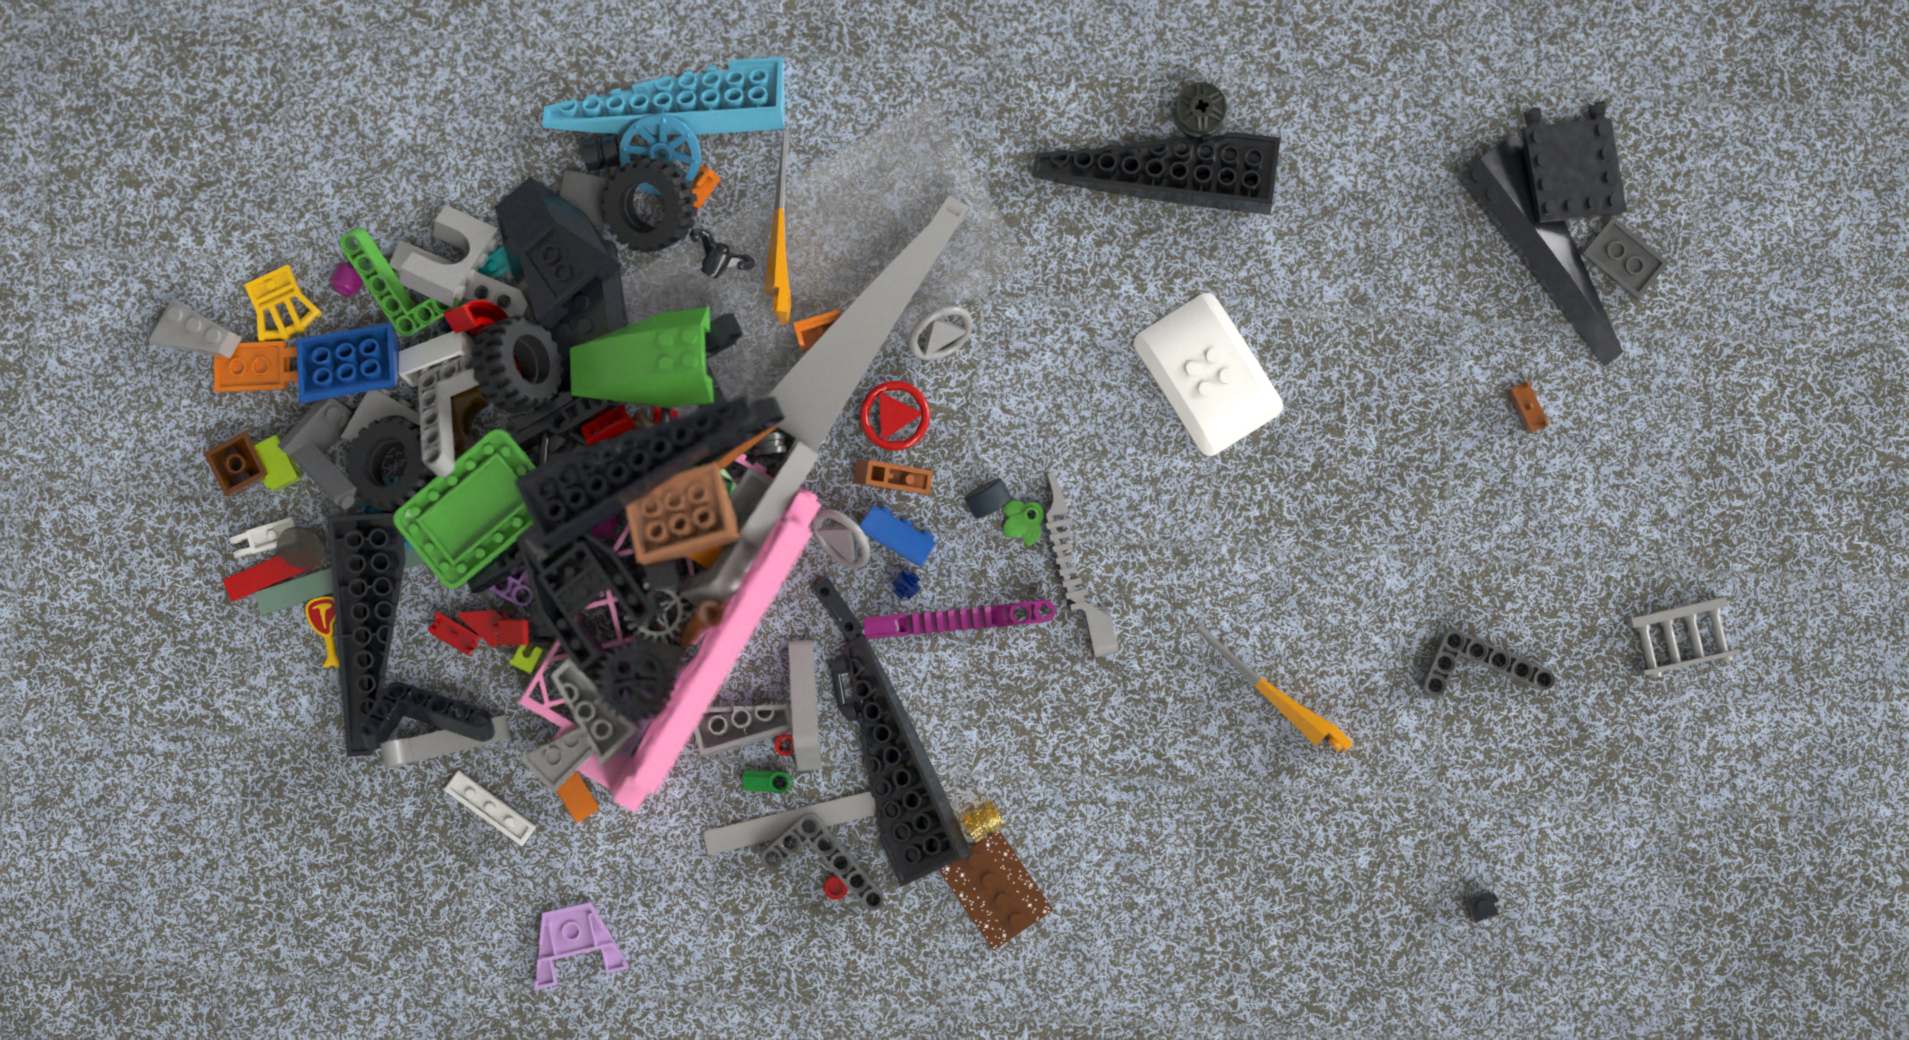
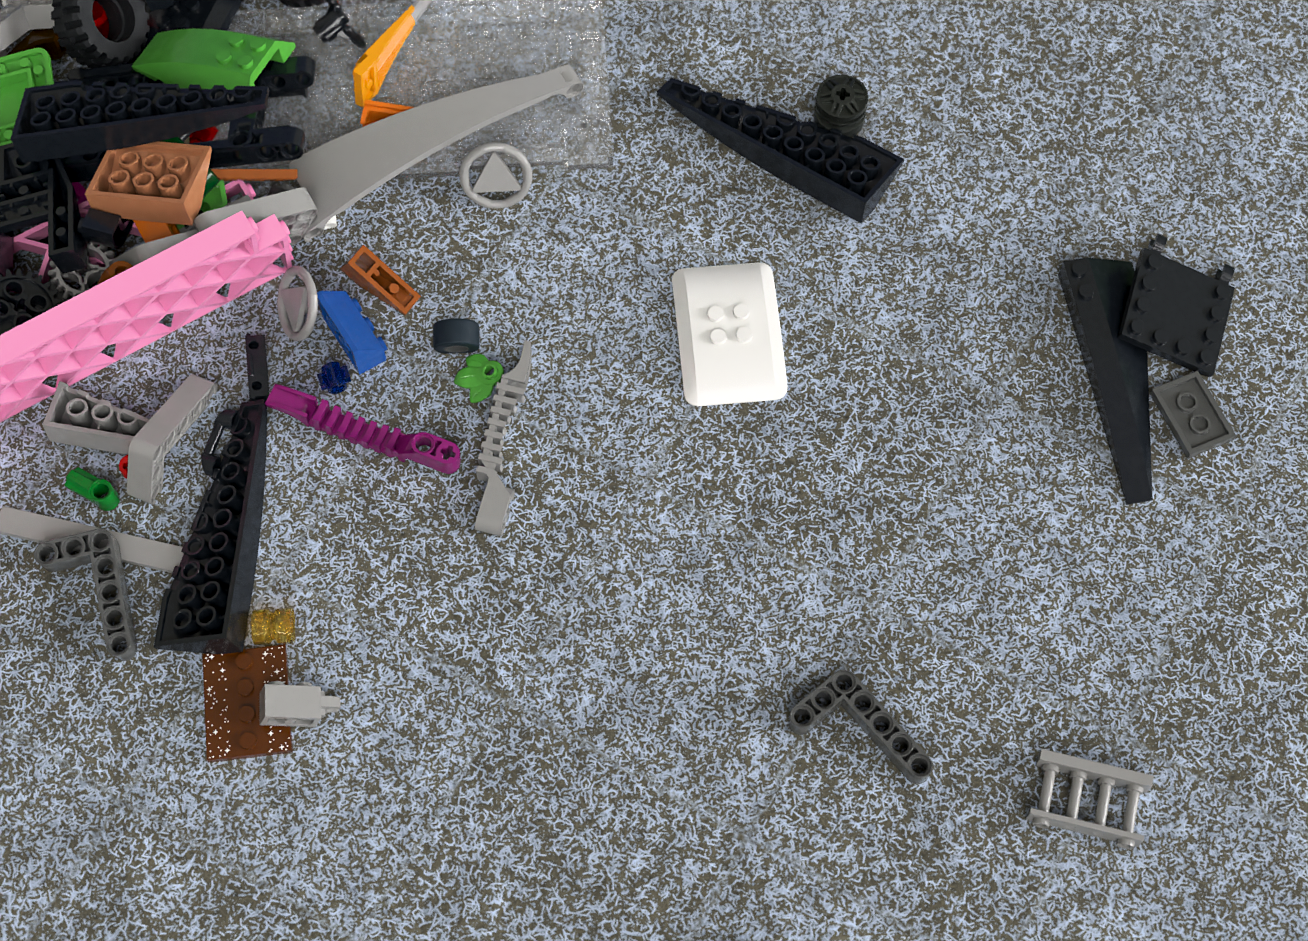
camera: 20 degrees right, 20 degrees down
(835, 888) = (91, 622): red tile -> none
(895, 415) = (413, 228): red piece -> none
(1037, 877) = (294, 704): none -> light grey hinge
(1309, 723) = (654, 691): light orange plate -> none
(1527, 407) = (1030, 503): dark orange hinge -> none

